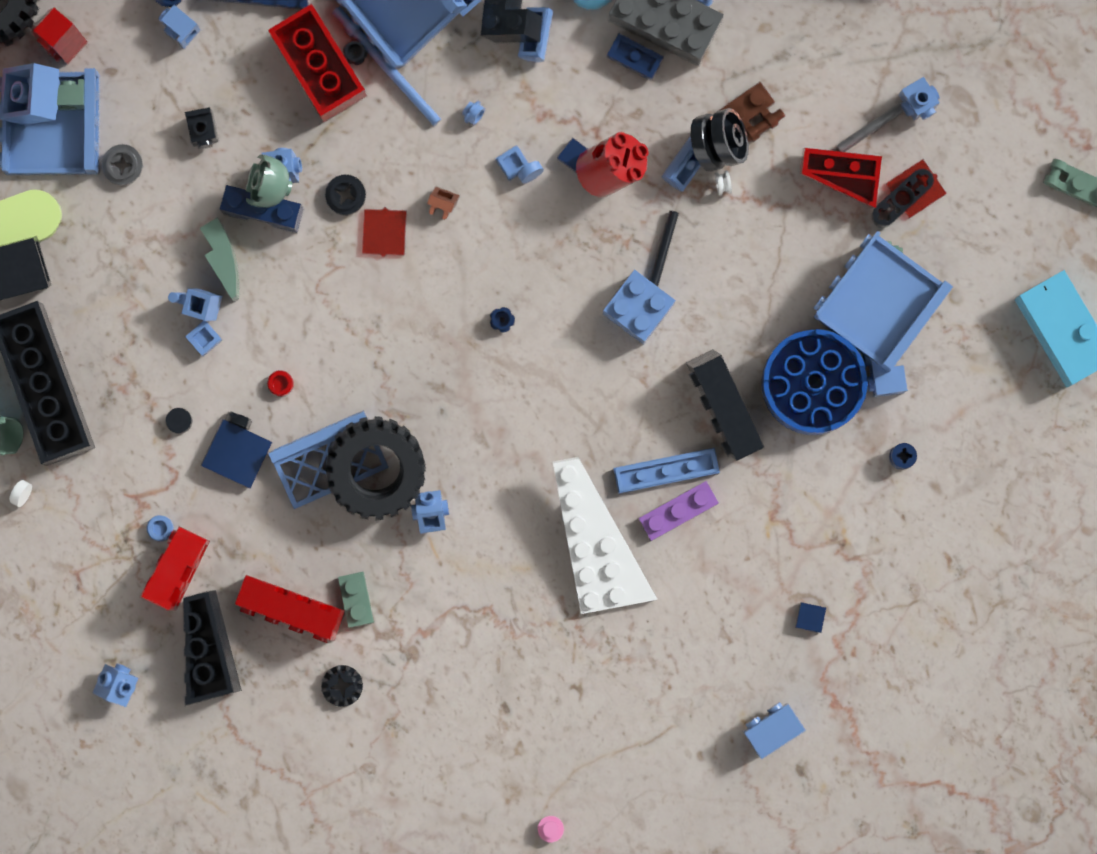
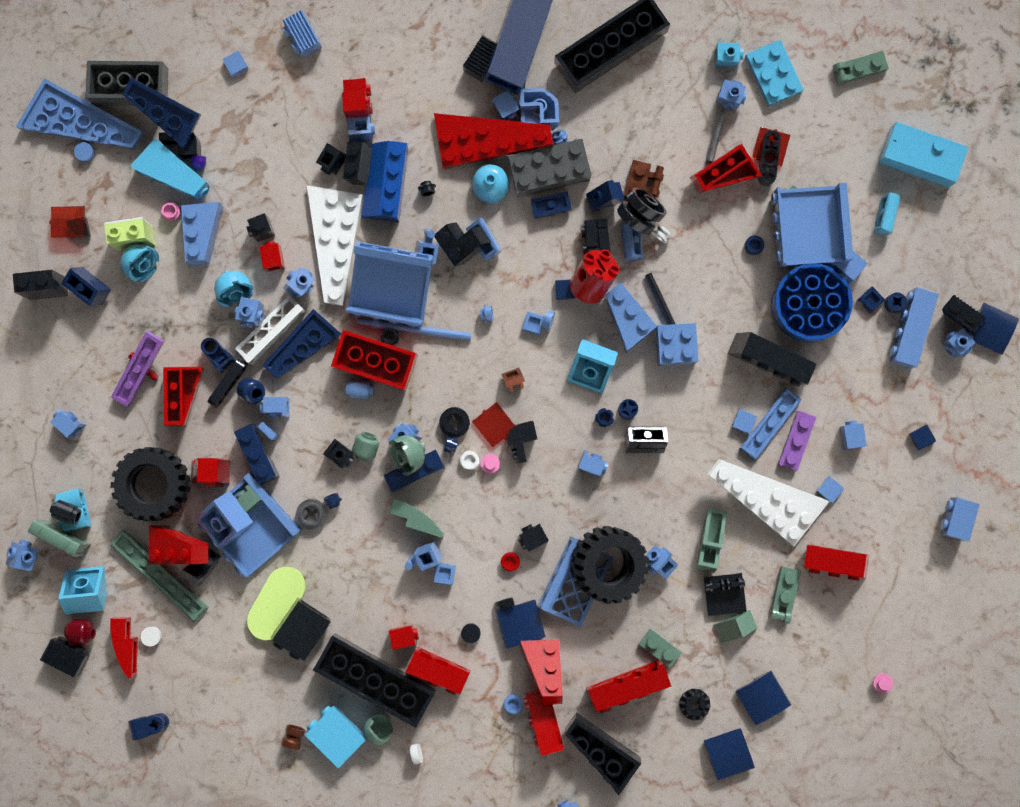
camera: 40 degrees left, 0 degrees up
(108, 365) = (403, 636): none -> red brick
(112, 427) = (438, 671): none -> red wedge
(114, 68) = (254, 451): none -> dark blue arch
(150, 44) = (268, 431): none -> medium blue tile
(154, 169) = (332, 500): none -> dark blue plate
(222, 517) = (545, 668): none -> wedge
(234, 142) = (365, 446): none -> sand green head
(278, 79) = (359, 388): none -> medium blue brick
(321, 214) = (450, 445): none -> dark blue plate
(323, 377) = (532, 537): none -> black brick
(327, 246) = (469, 460): none -> white tile
(332, 764) = (729, 754): none -> dark blue slope
(345, 267) = (490, 463): none -> bright pink plate
(396, 261) = (517, 436): none -> black brick
(416, 738) = (763, 698): none -> dark blue slope
(448, 356) = (592, 464): none -> medium blue brick
(452, 644) = (736, 626): none -> sand green slope
(468, 602) = (725, 594): none -> black hinge
(502, 535) = (711, 540): none -> sand green slope
(522, 376) = (645, 439): none -> black brick
(530, 654) = (785, 594): none -> sand green plate
(531, 324) = (628, 406): none -> dark blue wheel
(534, 256) = (592, 366): none -> medium azure slope
(610, 666) = (836, 562): none -> red wedge
(614, 238) = (629, 317): none -> medium blue wedge
(641, 445) = (744, 421): none -> medium blue tile
(653, 127) = (595, 235): none -> black brick
(669, 589) = (830, 489): none -> medium blue tile
(698, 94) = (605, 195): none -> dark blue brick
(739, 553) = (853, 435): none -> medium blue brick
(809, 275) = (754, 245): none -> dark blue tile
(881, 432) = (871, 299): none -> dark blue tile
(899, 498) = (914, 327): none -> medium blue brick
(921, 552) = (953, 345): none -> medium blue brick
(944, 56) = (722, 57): none -> medium azure brick
(961, 527) = (964, 315): none -> black brick
(975, 359) = (887, 213): none -> medium azure brick
(981, 568) = (997, 329): none -> dark blue slope
(986, 115) = (774, 73): none -> medium azure plate

